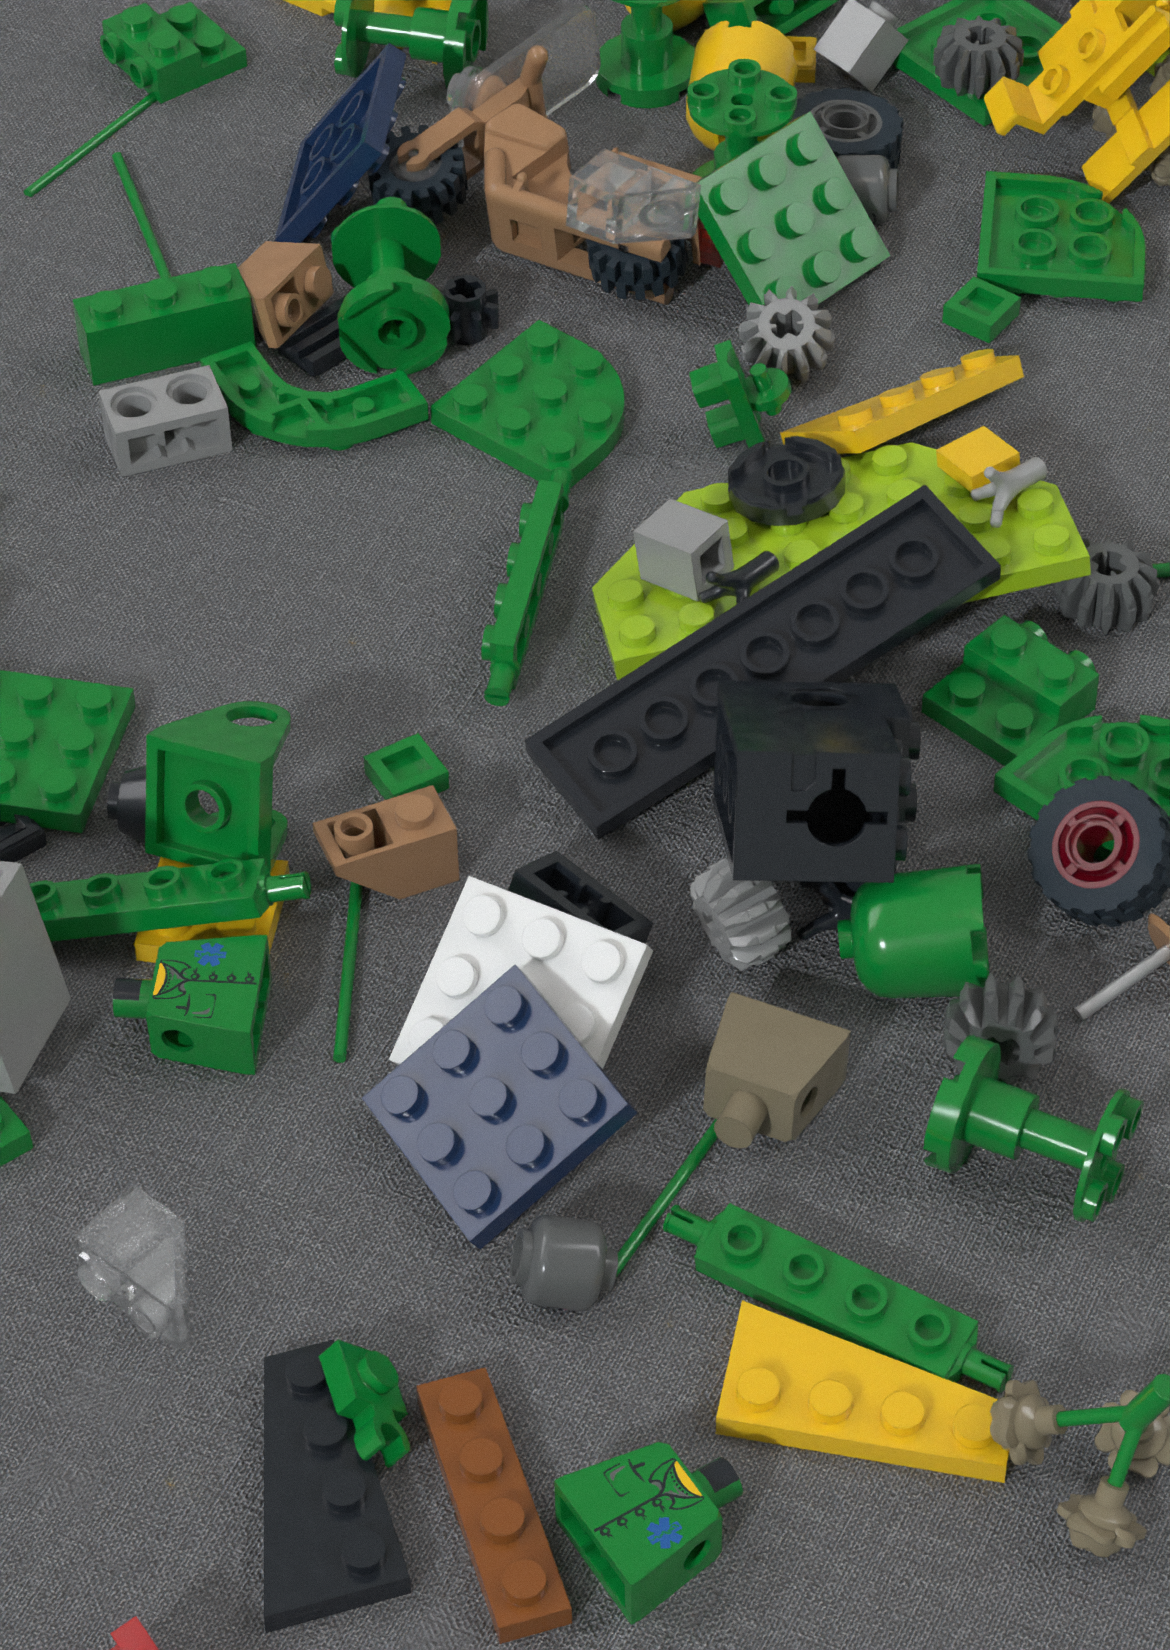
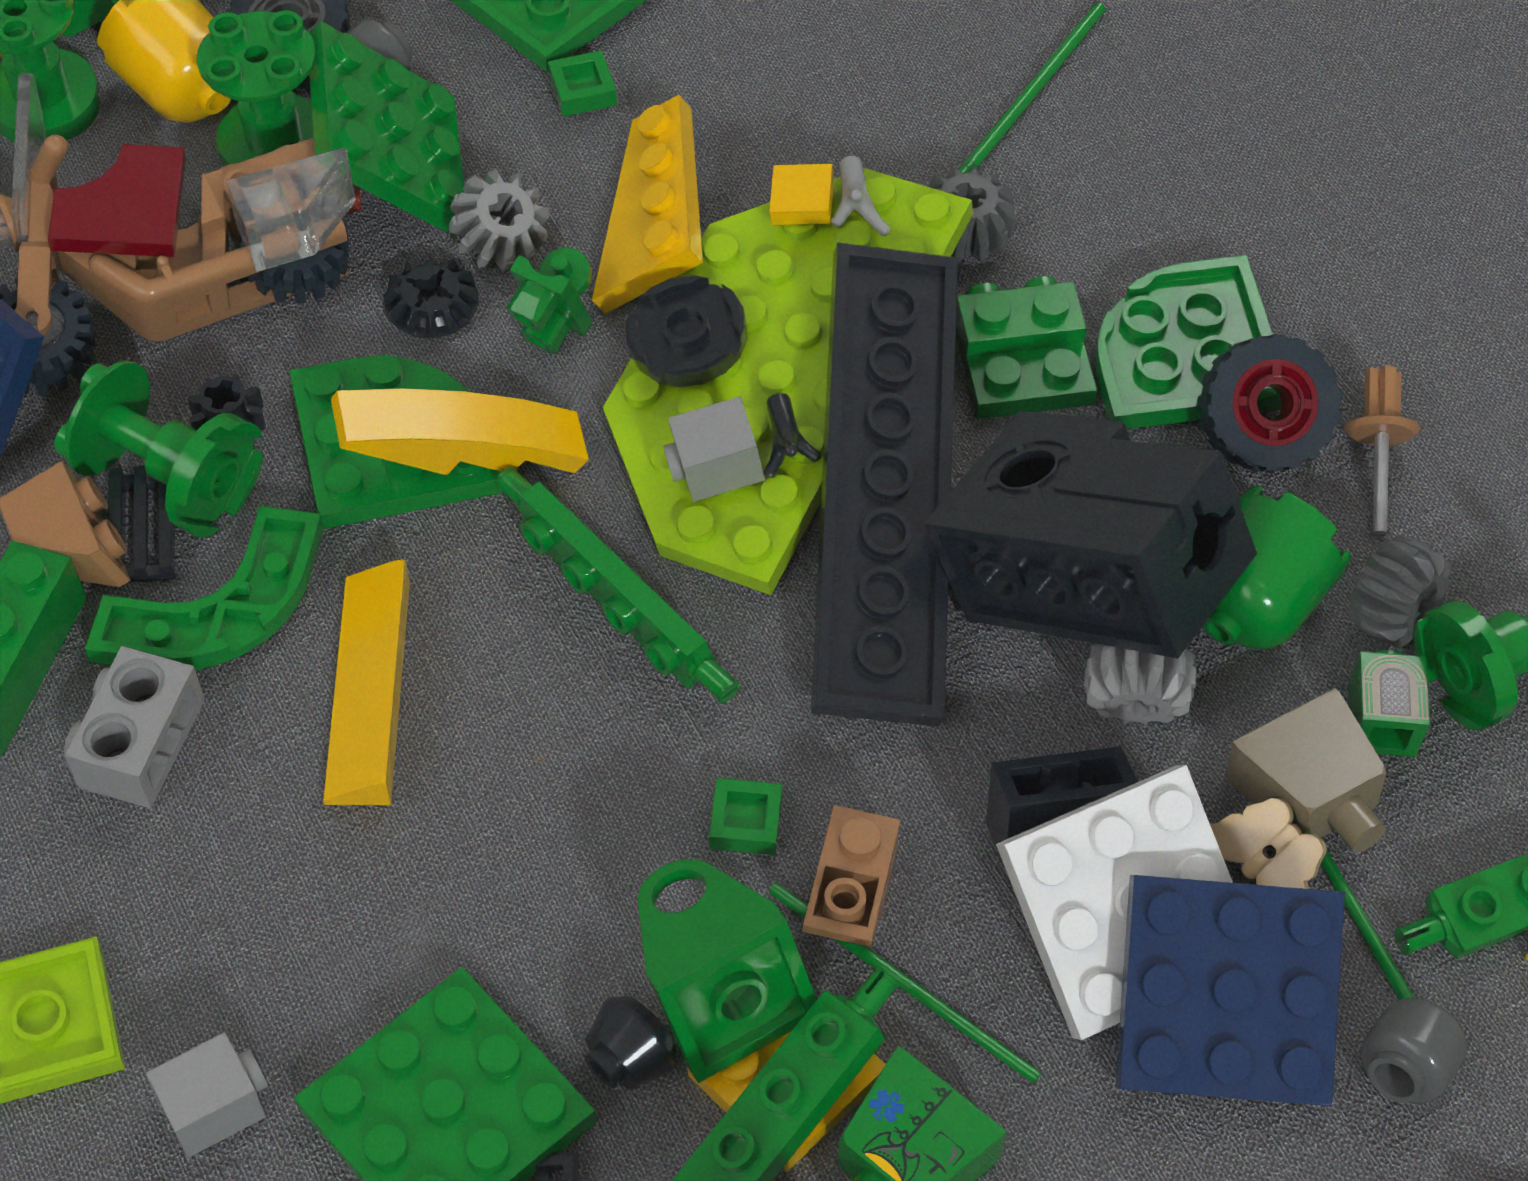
camera: 55 degrees left, 10 degrees up
(321, 519) = (368, 687): none -> yellow slope
(546, 133) = (124, 210): none -> dark red tile
(570, 422) = (445, 427): none -> yellow slope
(668, 1082) = (1248, 834): none -> tan animal
(669, 359) = (438, 315): none -> black gear
(888, 1088) = (1391, 700): none -> brick

